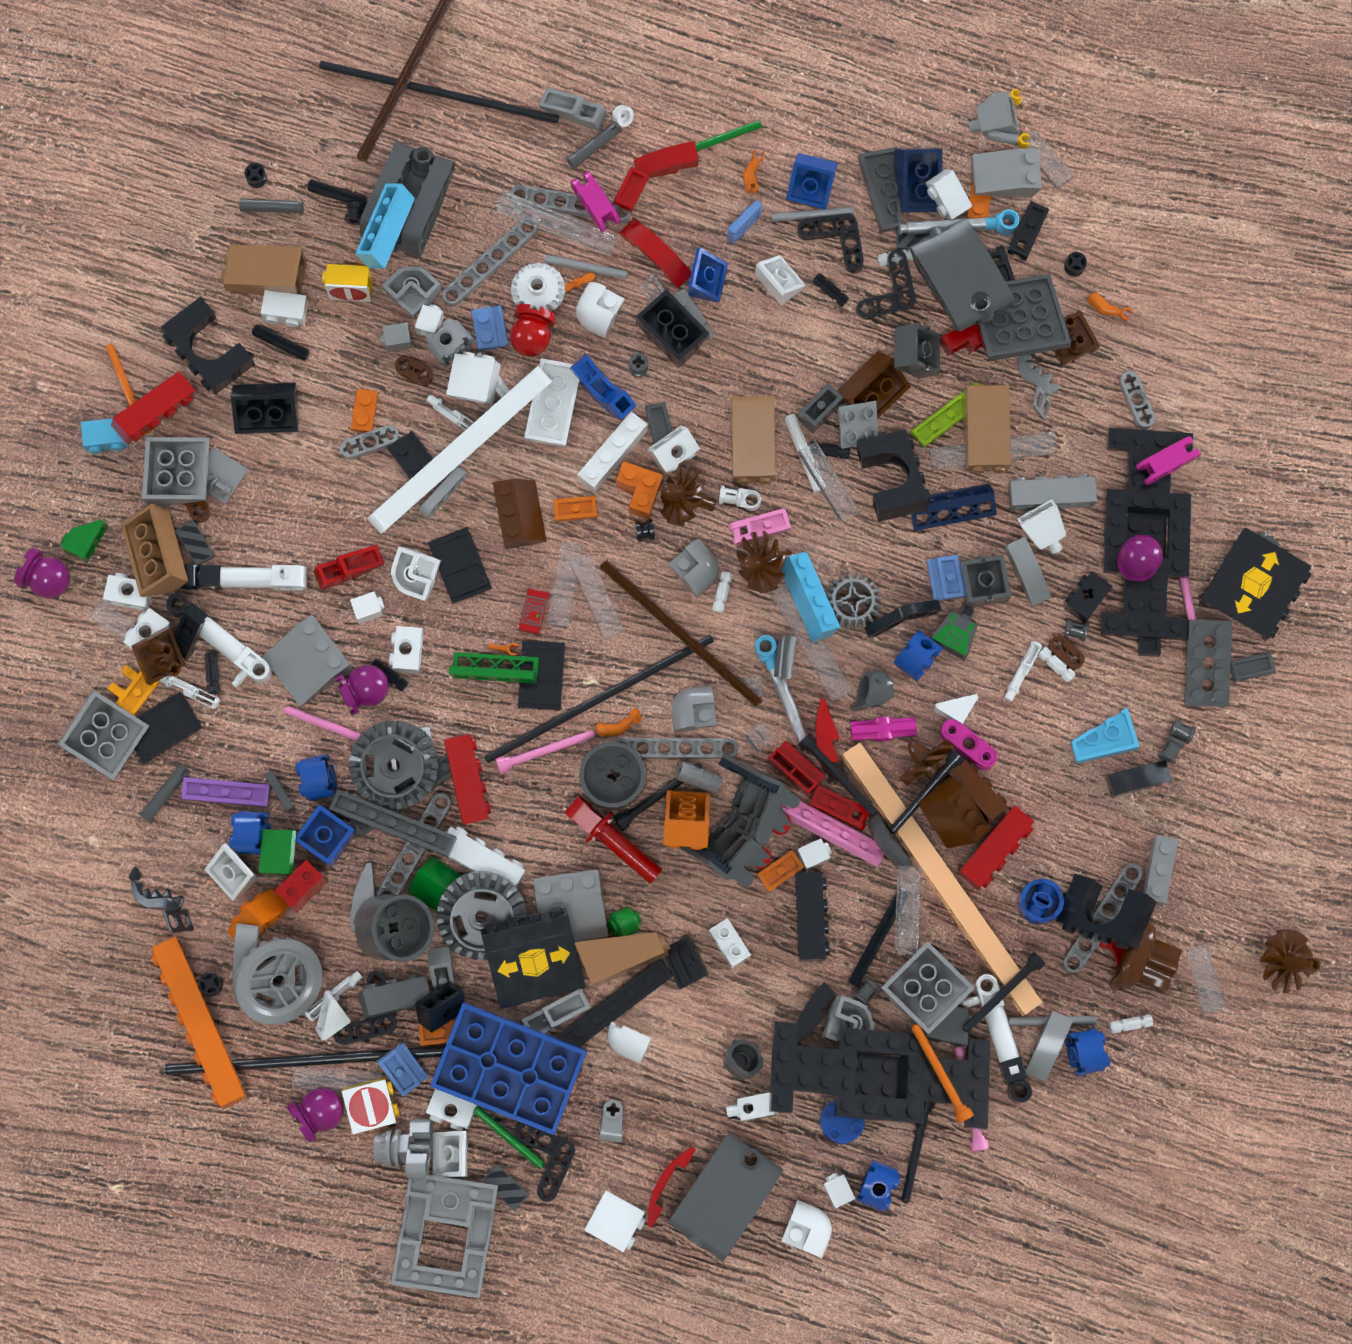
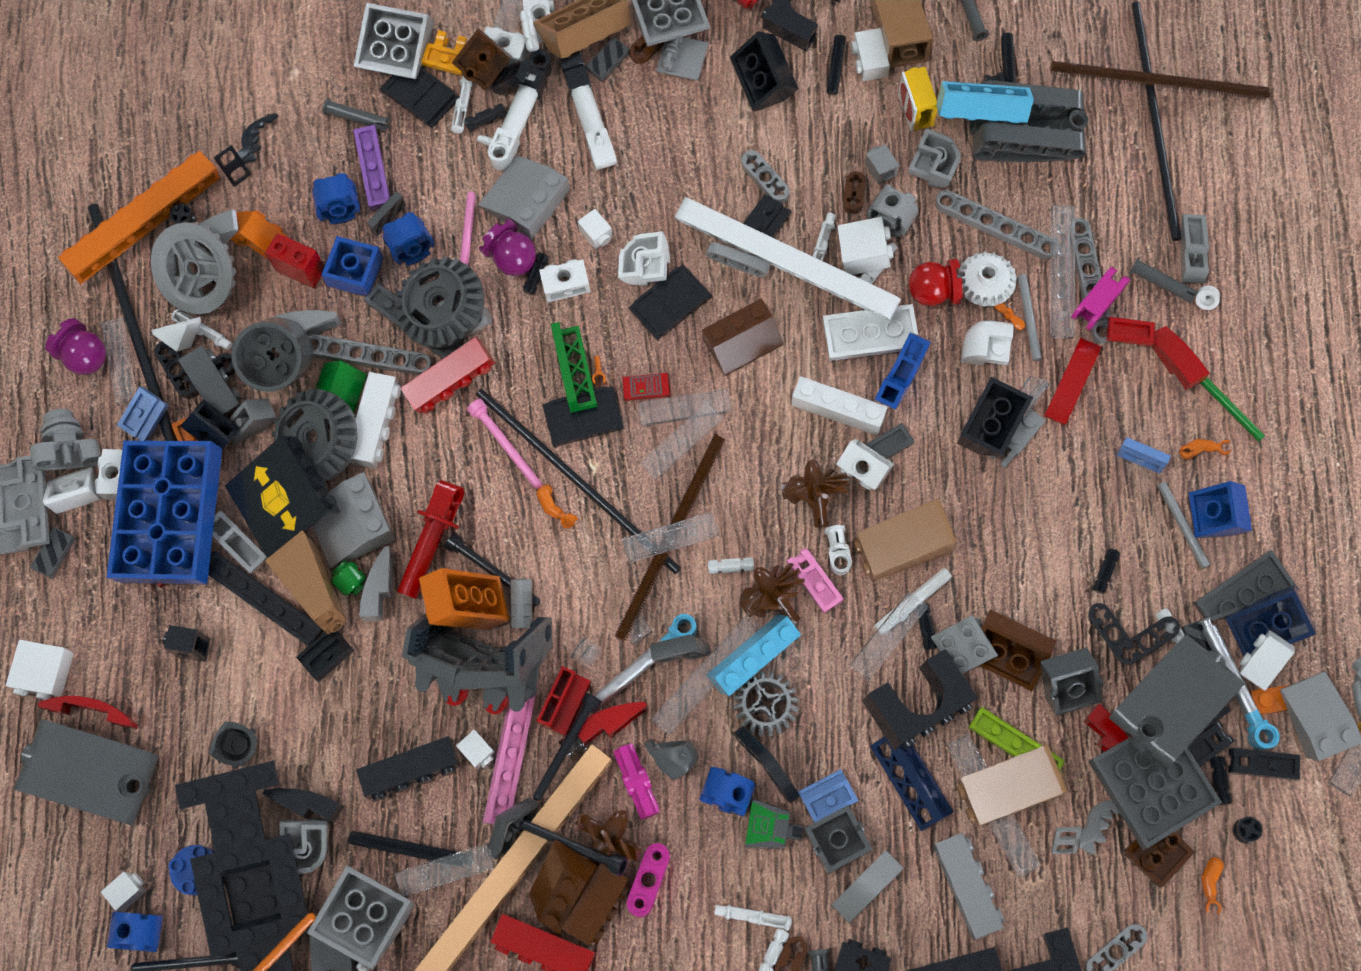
camera: 80 degrees right, 5 degrees down
(146, 602) = (529, 30): none -> white axle
(230, 872) = (296, 199): white slope -> none
(277, 852) = (320, 224): green slope -> none
(348, 567) = (631, 199): red slope -> none
(364, 410) = (796, 162): orange plate -> none
(370, 1105) = (99, 396): piece -> none
(393, 823) = (380, 322): dark grey plate -> none
(429, 320) = (913, 184): white brick -> none
(489, 328) = (927, 246): medium blue plate -> none
(508, 1137) = (98, 539): green piece -> none
(552, 1150) = (98, 589): black beam -> none
(575, 508) = (767, 390): orange plate -> none
(600, 763) = (475, 510): dark grey brick -> none
(611, 1126) = (138, 634): light grey piece -> none
(627, 1042) = (221, 620): white brick -> none
(638, 372) = (939, 406): dark grey bush -> none
(638, 1079) = (186, 643): none -> black brick
(640, 899) = (377, 586): none -> light grey slope
(644, 485) = (815, 446): orange brick -> none
(645, 530) = (768, 465): black wheel -> none
(675, 743) = (547, 571): light grey beam -> none
(684, 631) = (670, 537): none -> clear tile
(693, 709) = (595, 577): light grey brick -> none
(696, 567) = (747, 530): light grey brick -> none
(707, 276) = (1067, 437): blue slope -> none
(729, 943) = (355, 692): white brick -> none
(760, 1108) = (185, 765): white torso -> none
(779, 278) = (1097, 513): white slope -> none
(780, 871) = (448, 720): orange plate -> none
(808, 1229) = (76, 872): white brick -> none
(820, 408) = (967, 599): dark grey brick -> none
(839, 807) = (536, 759): red plate -> none
(843, 232) = (1175, 565): black beam -> none
(867, 992) = (343, 854): dark grey bush -> none
(956, 708) = (683, 855): white slope -> none
(1029, 268) = (1220, 779): none -> black axle
(1044, 526) = (923, 887): white torso -> none

